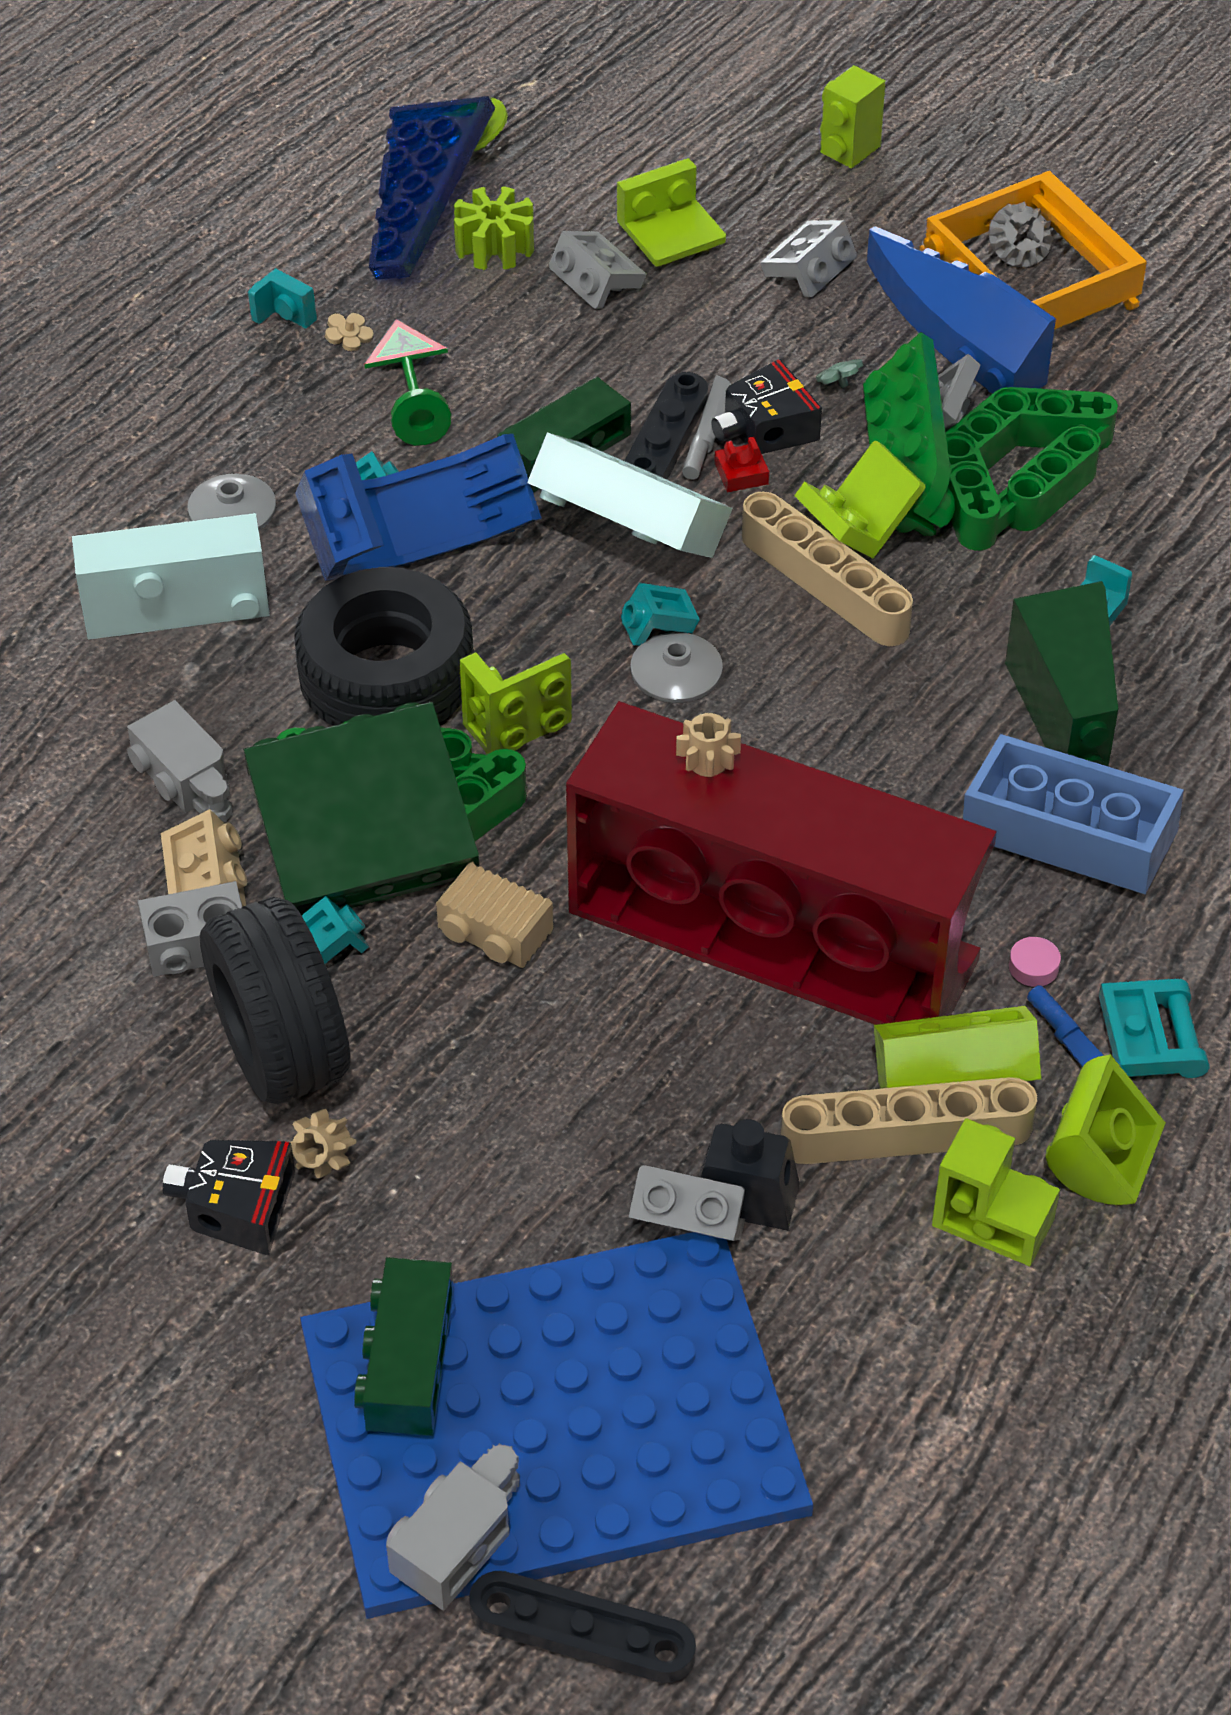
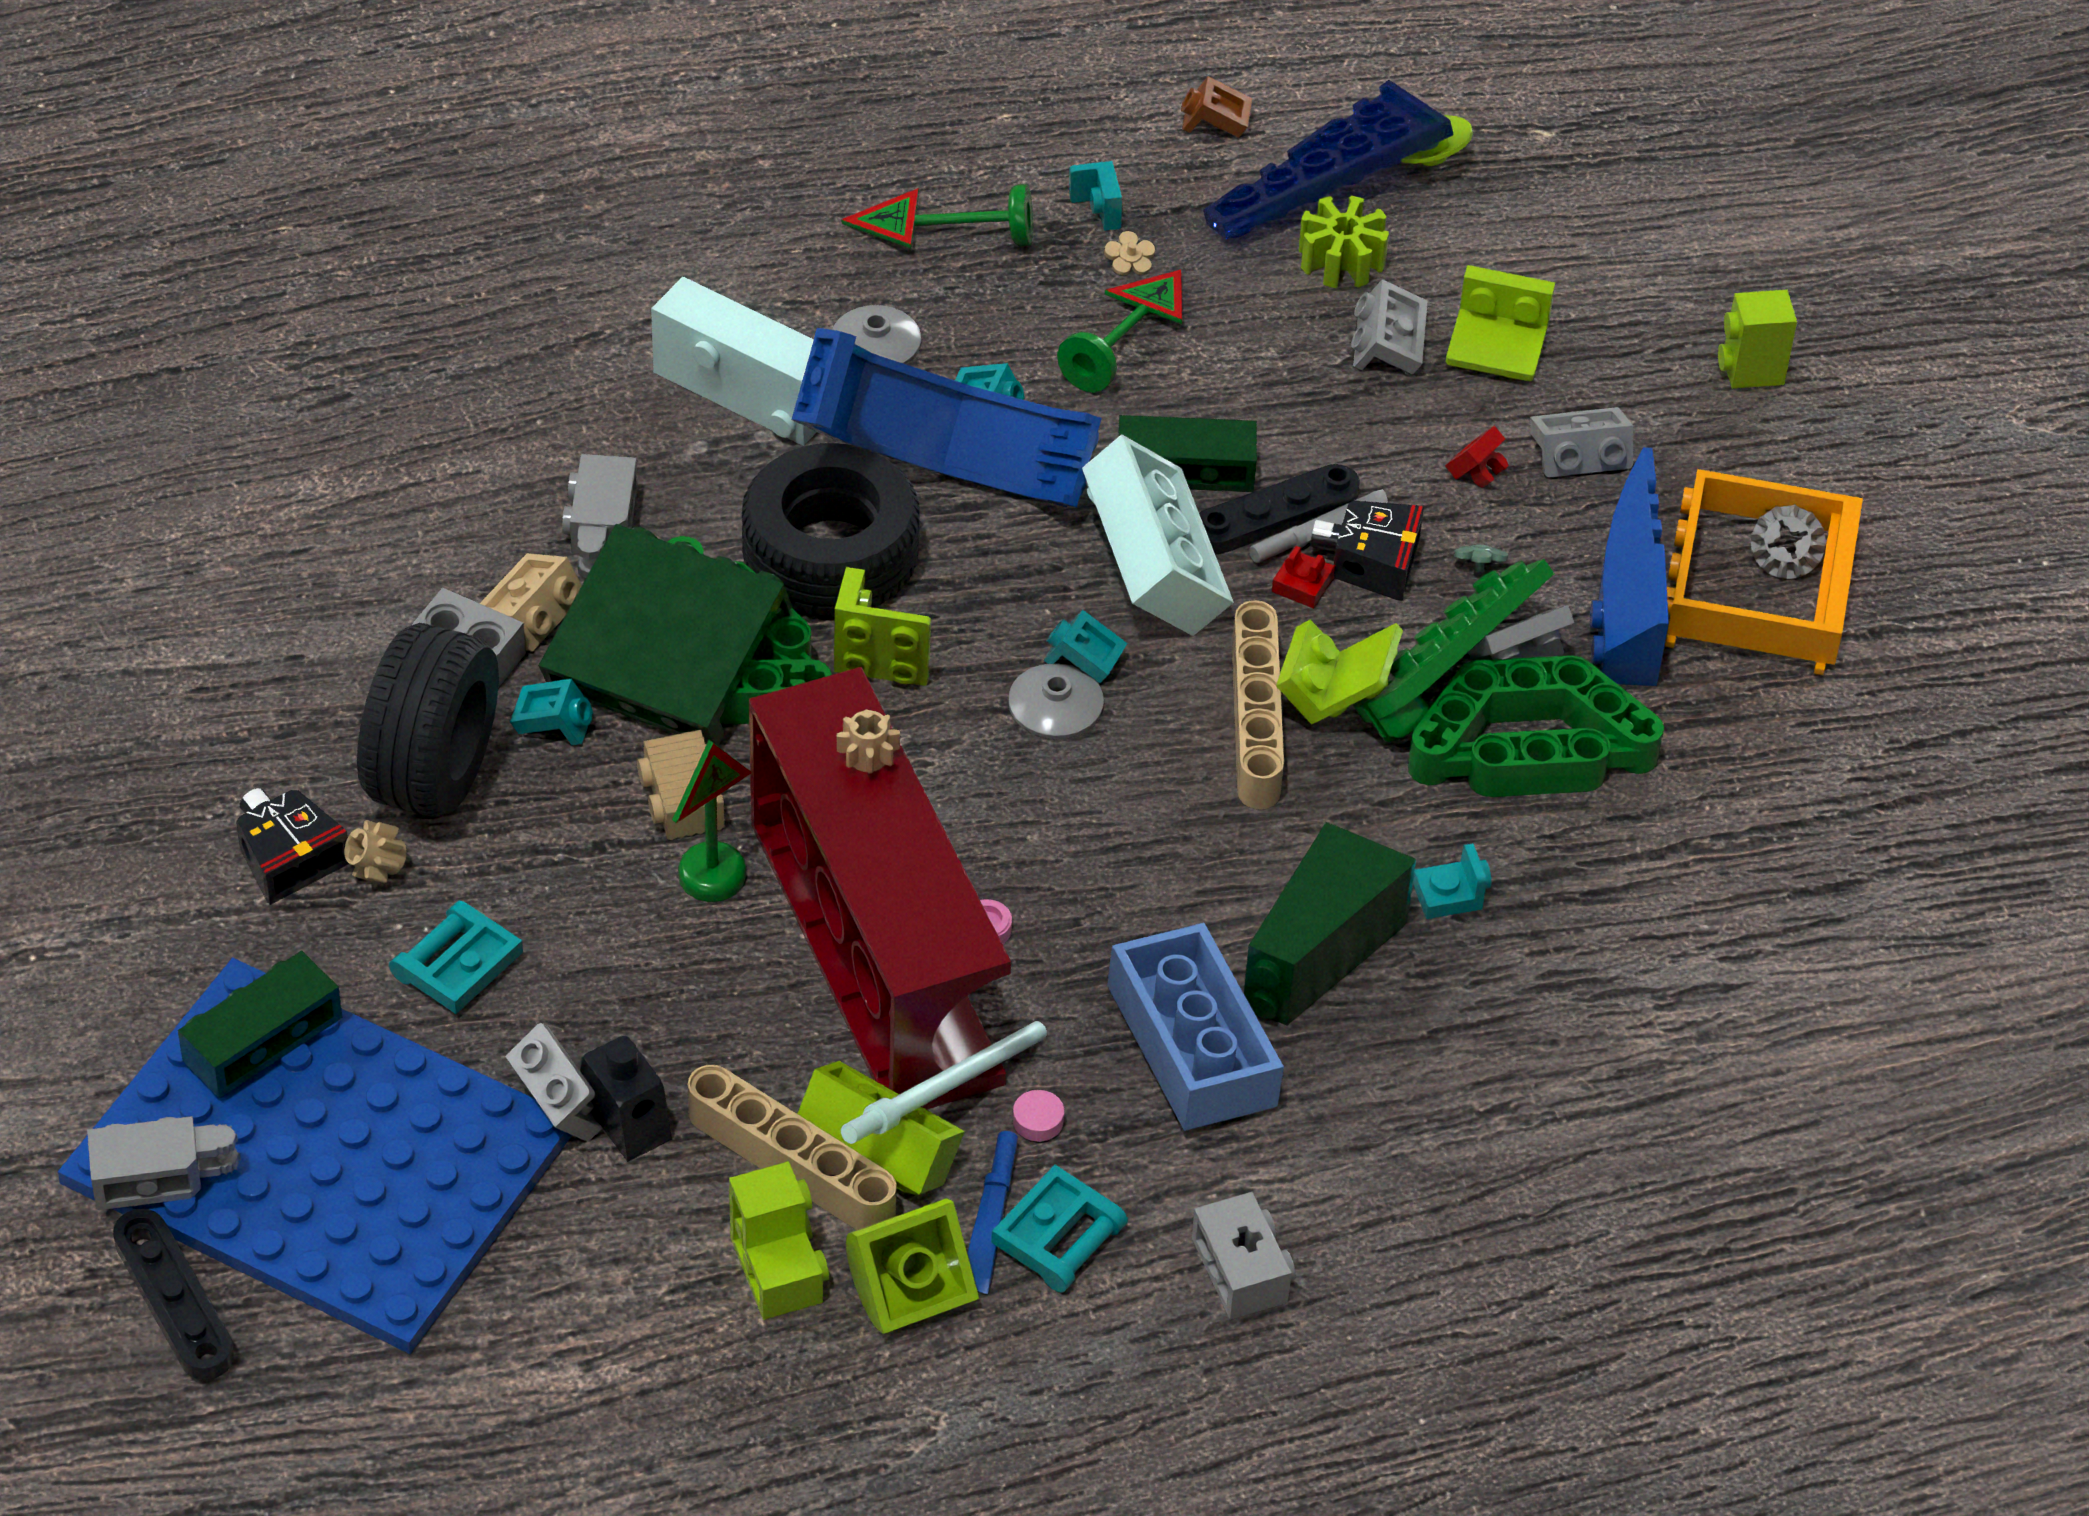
camera: 40 degrees right, 0 degrees up
(148, 413) = (897, 217): none -> green piece
(292, 192) = (1218, 105): none -> dark orange bracket
(495, 1176) = (464, 966): none -> teal plate
(585, 963) = (711, 868): none -> green piece
(759, 309) = (1477, 455): none -> red tile
(986, 1026) = (887, 1112): none -> light aqua bar

